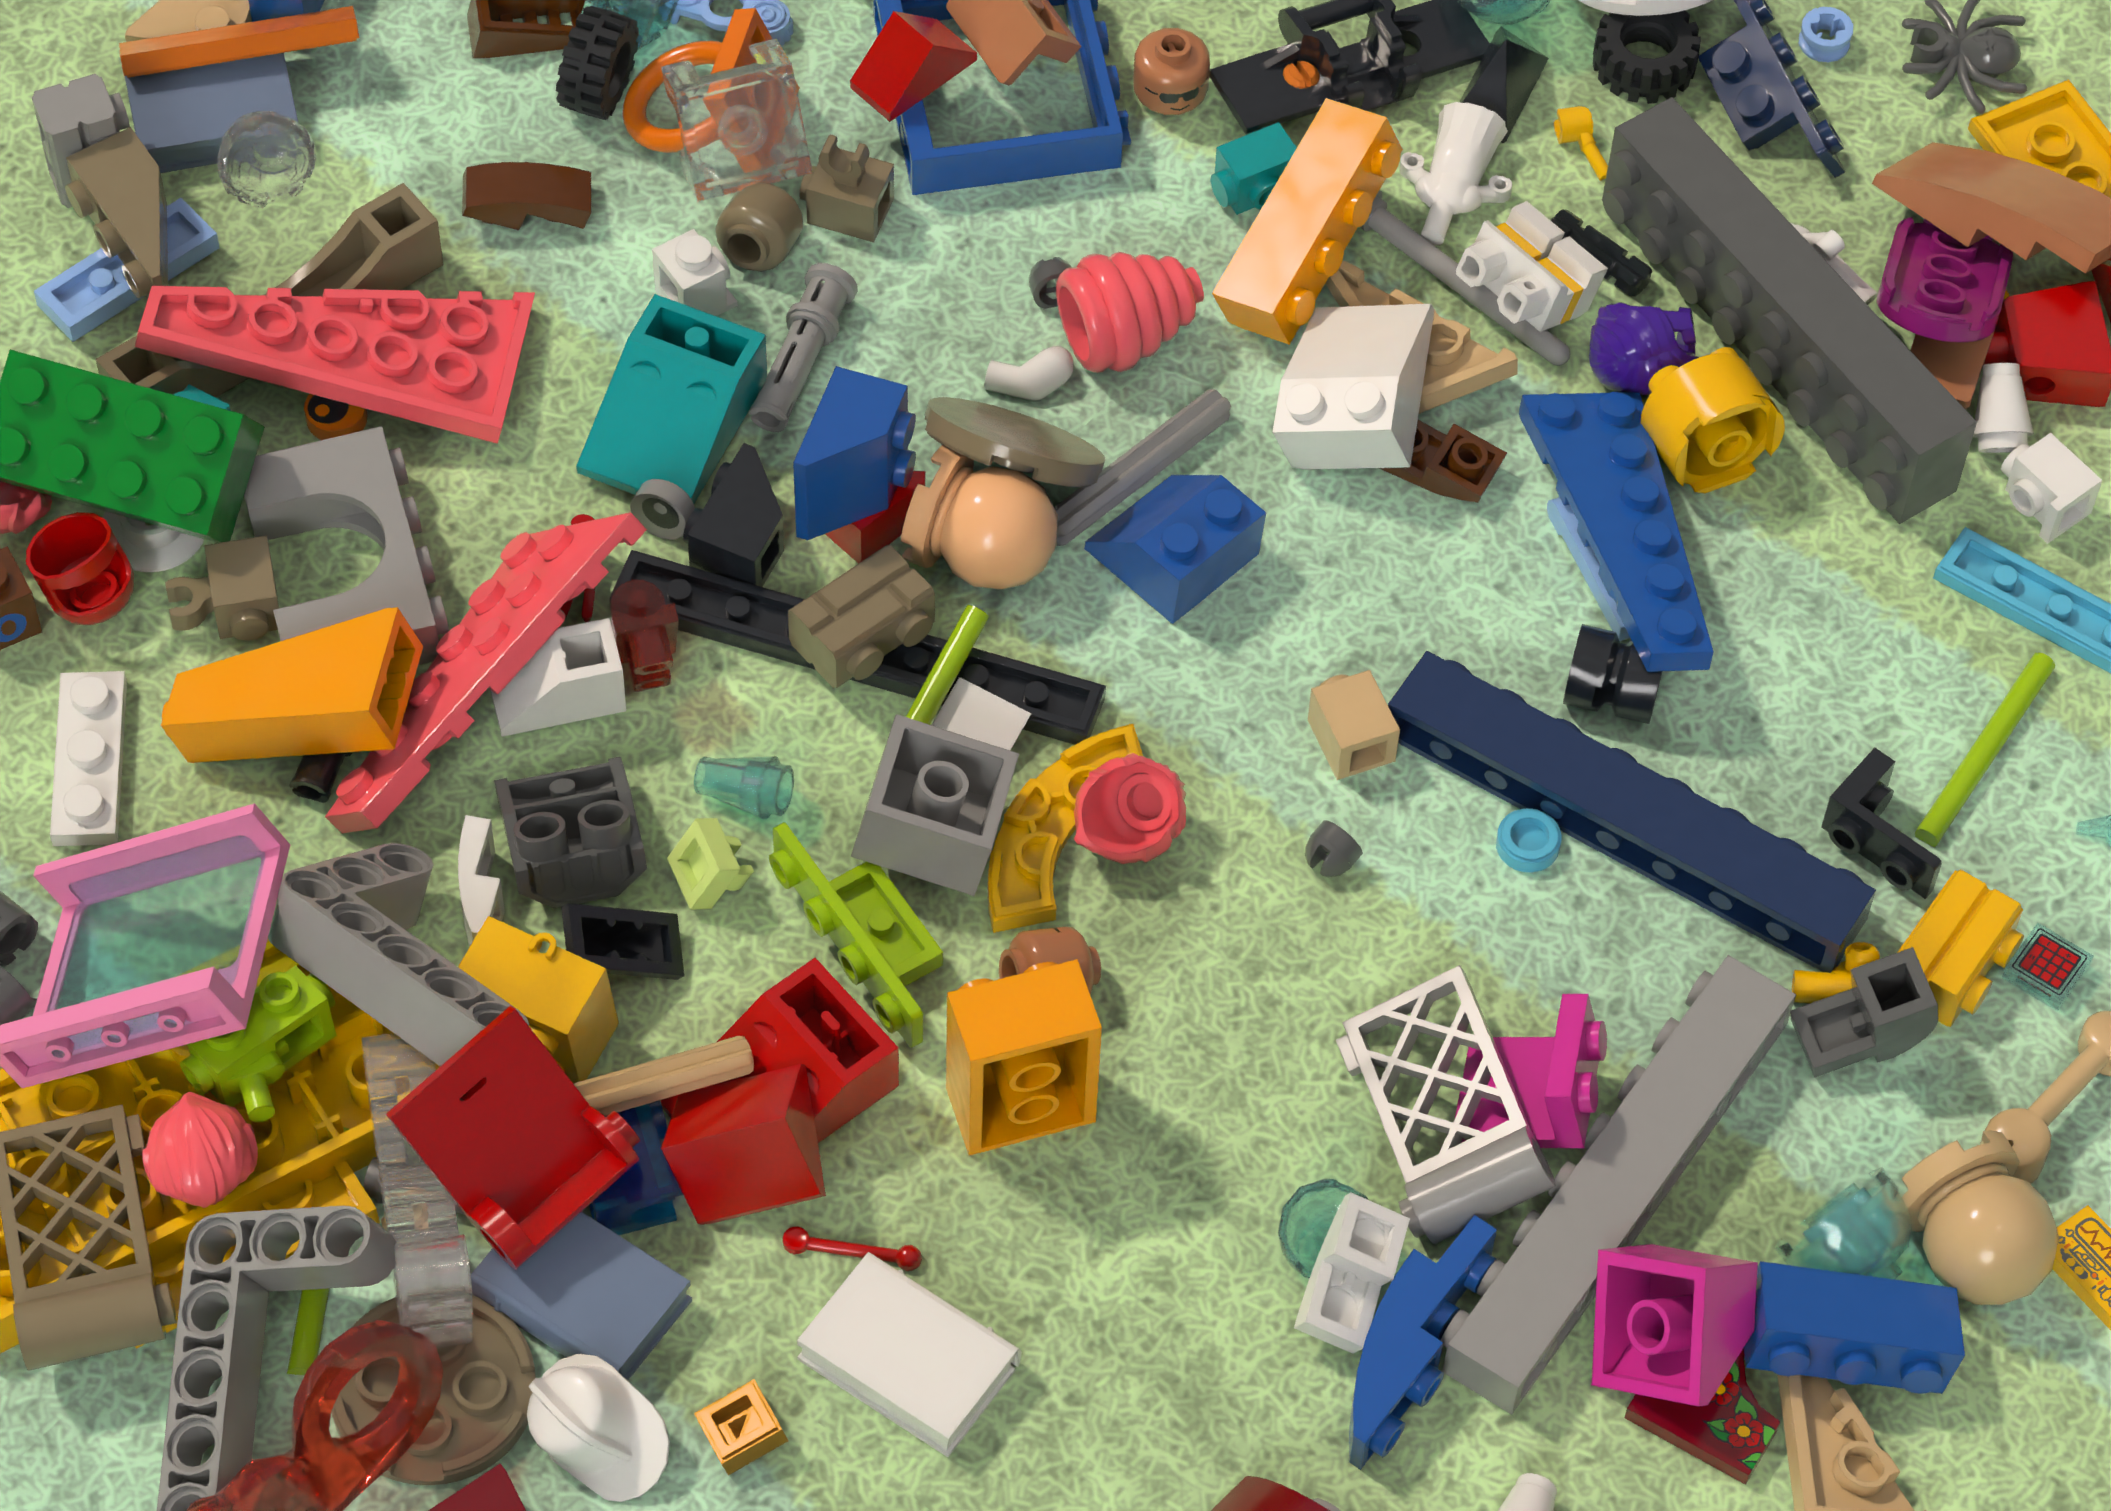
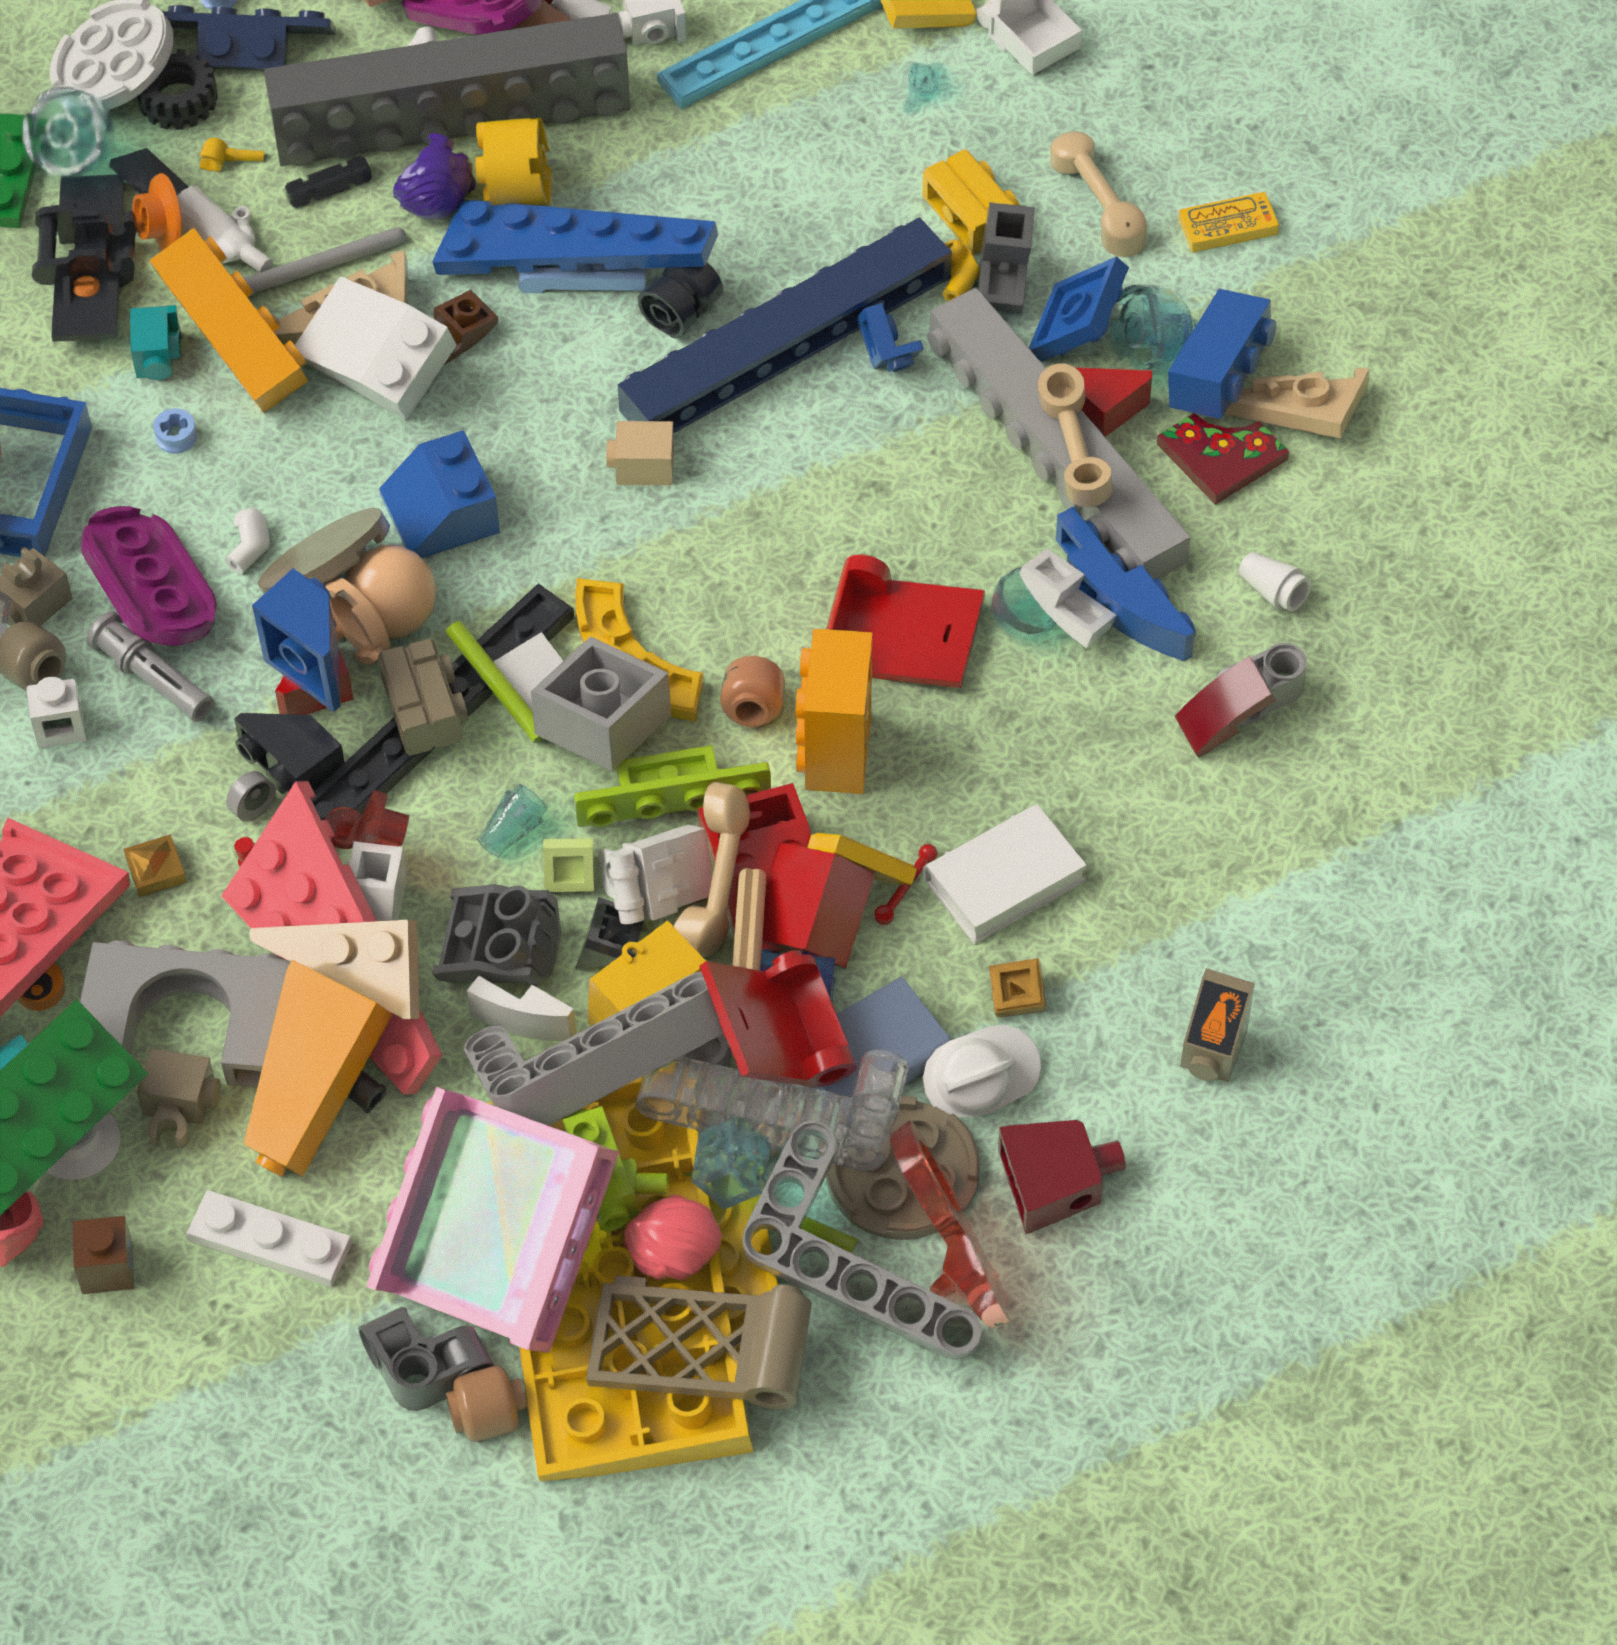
camera: 65 degrees left, 0 degrees up
(71, 558) = (94, 1172): red helmet -> none
(324, 1167) = (731, 1162): none -> clear light blue brick
(446, 679) = (366, 957): none -> tan wing
(536, 457) = (154, 865): none -> pearl gold tile
(674, 399) = (163, 755): teal slope -> none
(711, 952) = (657, 874): none -> white piece
(801, 985) = (727, 814): none -> tan piece
(831, 1170) = (886, 867): none -> yellow tile
(922, 292) = (148, 576): none -> magenta tile
(1039, 276) = (173, 497): dark grey hinge -> none
(1124, 307) = (236, 458): coral piece -> none
(1130, 809) = (654, 598): coral hair -> none
(1141, 464) = (351, 477): light grey axle -> none
(1156, 230) = (163, 426): none -> light blue bush
(1171, 71) = (39, 359): nougat head -> none
(1230, 1102) = (907, 622): none -> red door
(1338, 843) = (729, 497): dark grey hinge -> none
(1429, 93) = (158, 212): none -> orange piece
(1466, 1178) = (1026, 505): light grey piece -> none
(1528, 840) = (774, 395): medium azure tile -> none
(1532, 269) = (320, 229): white hips -> none
(1550, 1076) = (973, 450): dark pink bracket -> none
(1657, 1151) = (1062, 397): none -> tan piece
(1666, 915) = (879, 334): none -> blue bracket
(1670, 1321) = (1179, 441): dark pink slope -> none
(1714, 1212) = (1114, 395): none -> red slope
(1839, 1129) = (1079, 309): none -> blue plate
(1856, 827) = (860, 215): black bracket -> none
(1980, 1223) = (1186, 254): tan tile -> none
(1985, 749) = (826, 132): lime bar -> none
(2047, 966) = (1005, 161): tile -> none

